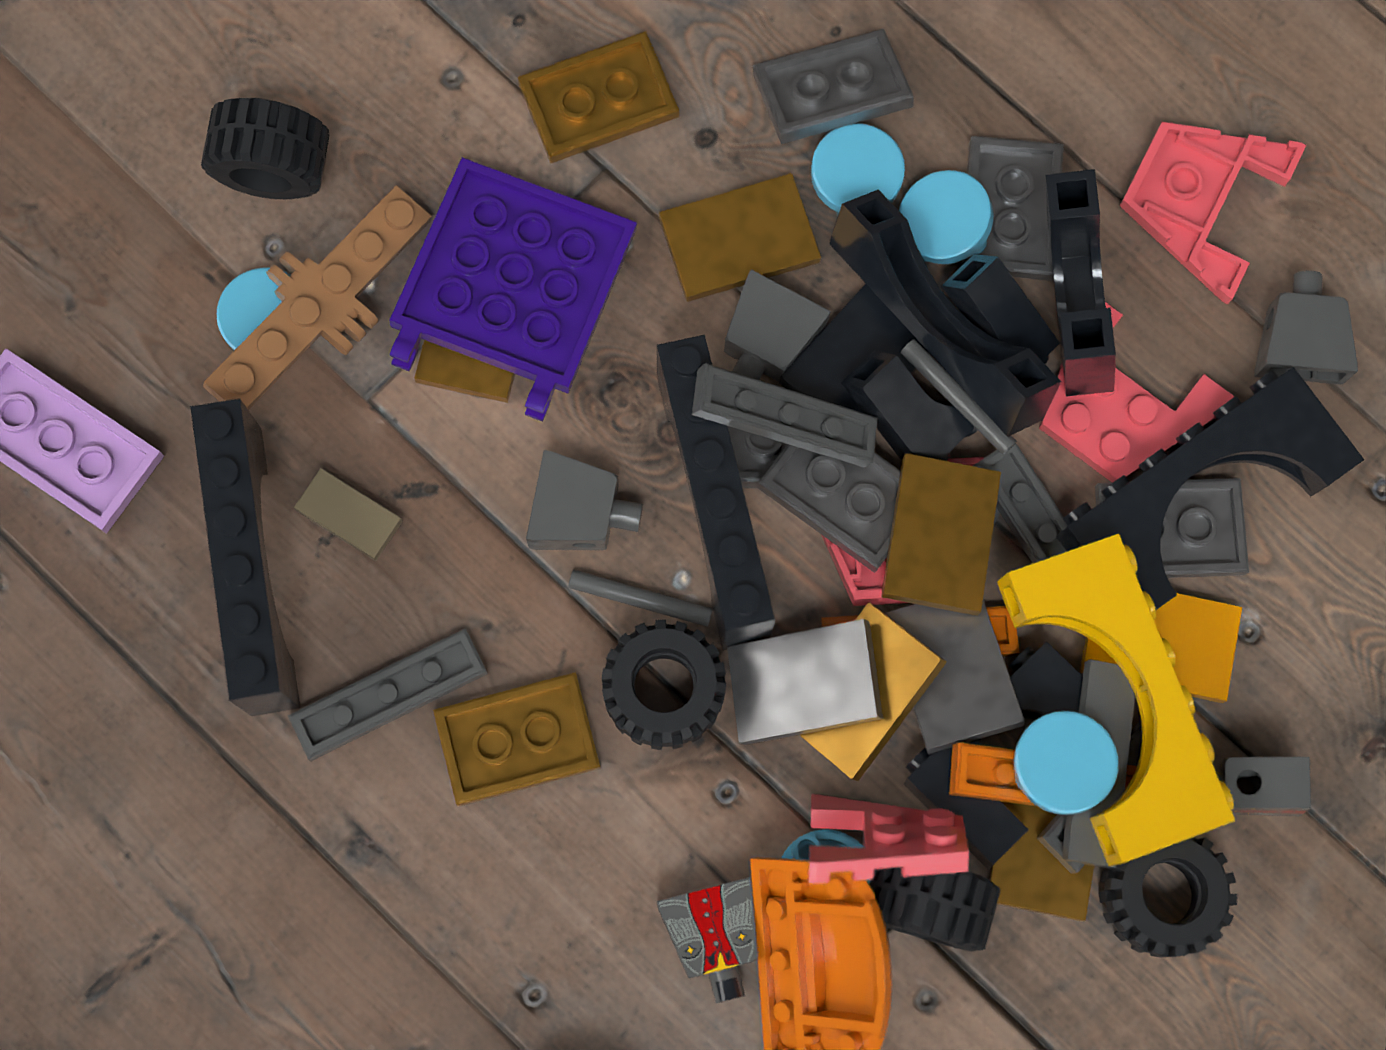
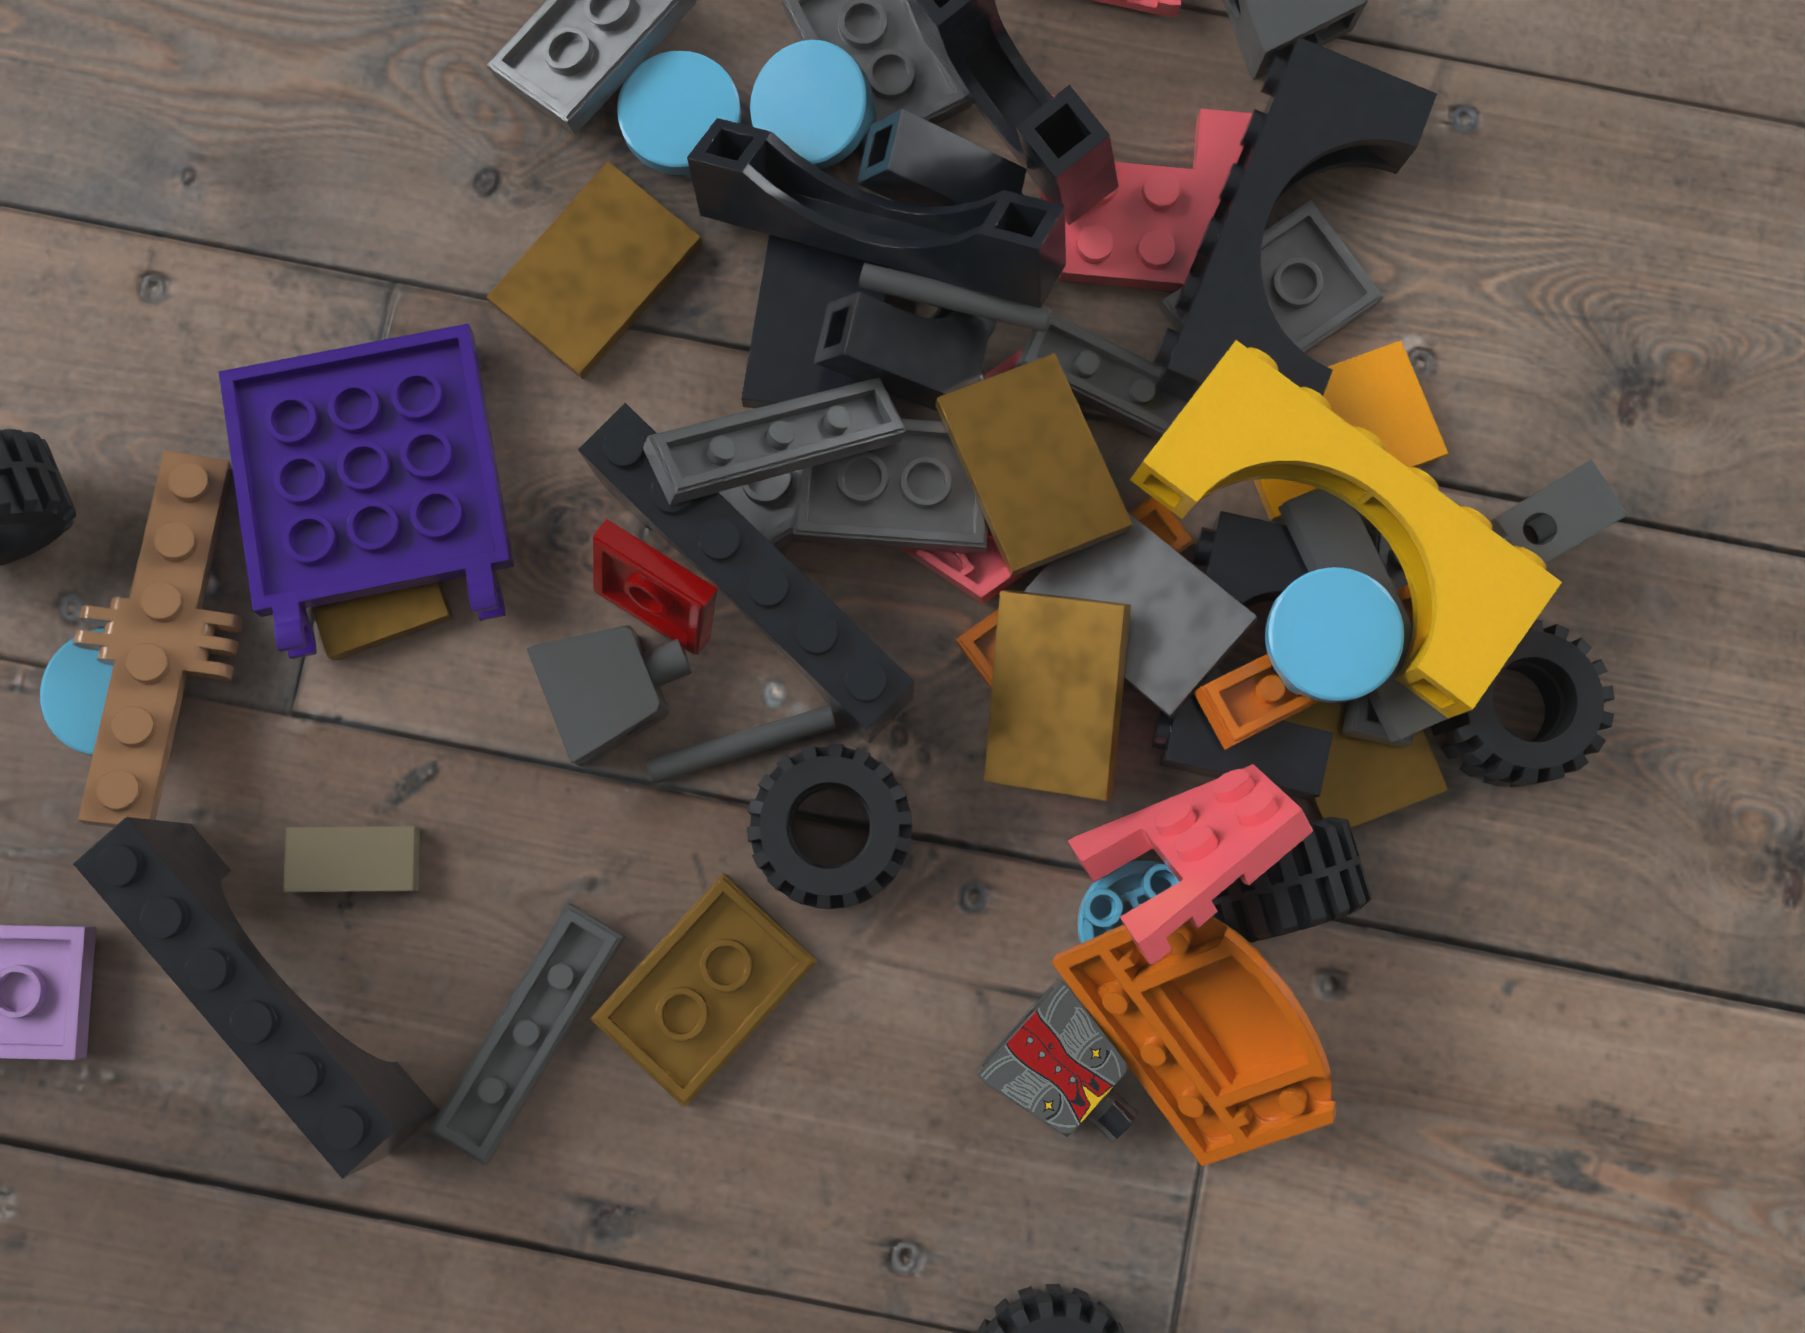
camera: 30 degrees left, 5 degrees up
(598, 97) = (334, 208): pearl gold tile -> none
(647, 461) = (652, 587): none -> red tile
(771, 328) = (696, 349): dark grey torso -> none
(804, 682) = (985, 724): tile -> none

